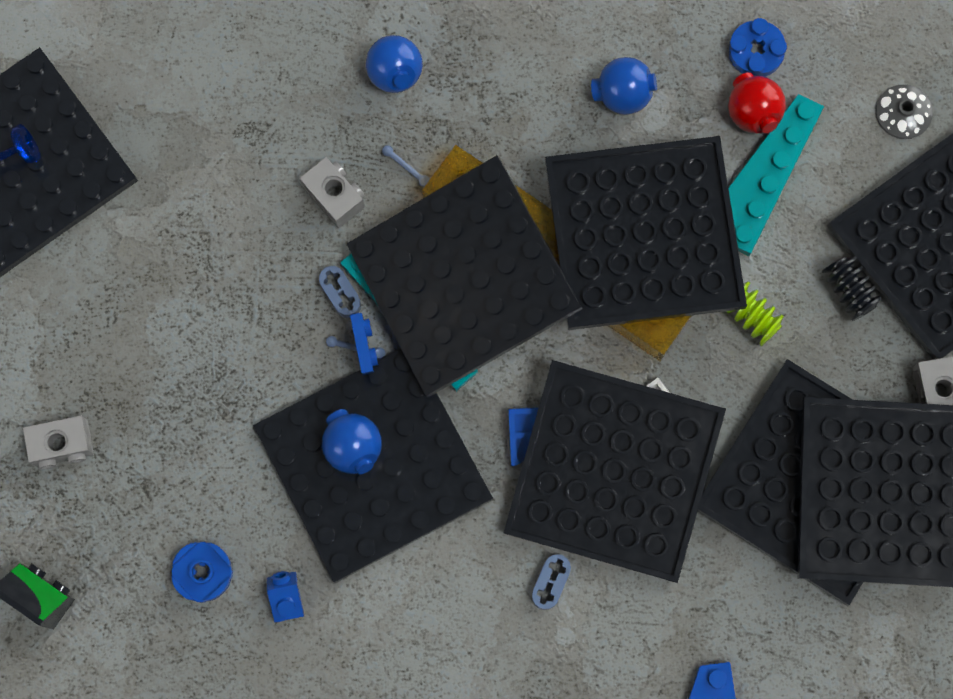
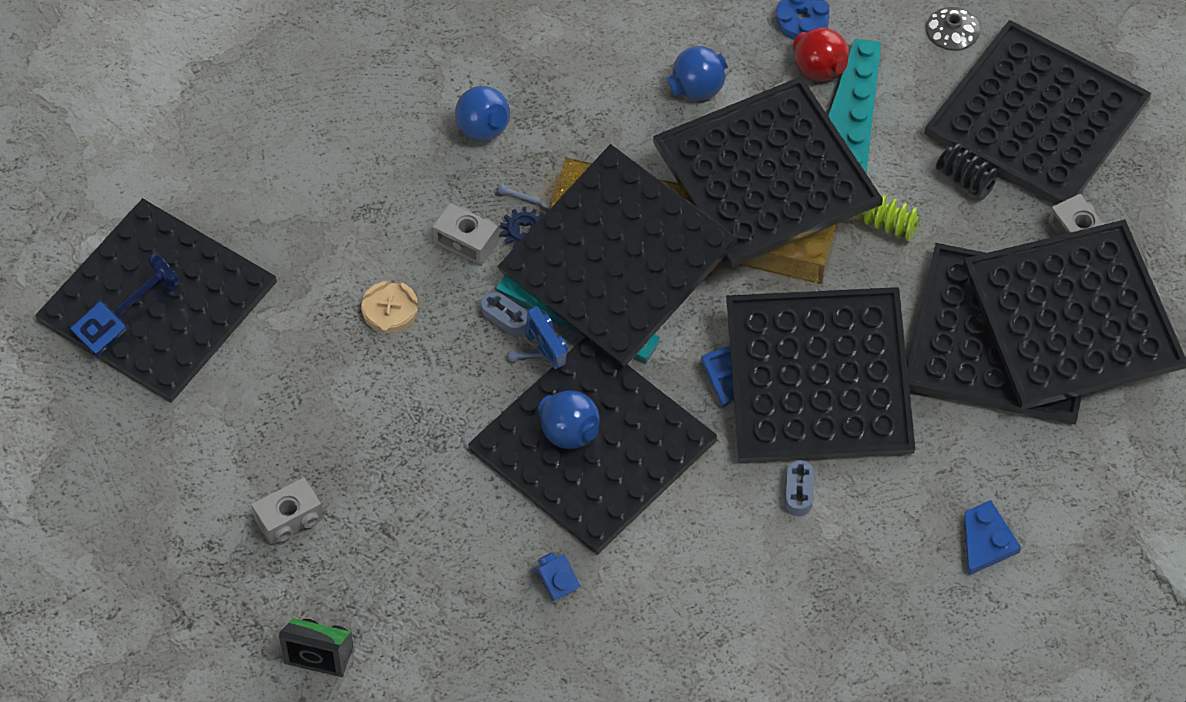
camera: 20 degrees left, 20 degrees down
(184, 572) = (472, 595): blue plate -> none
(233, 246) = (389, 307): none -> tan tile
(385, 192) = (512, 227): none -> dark blue gear

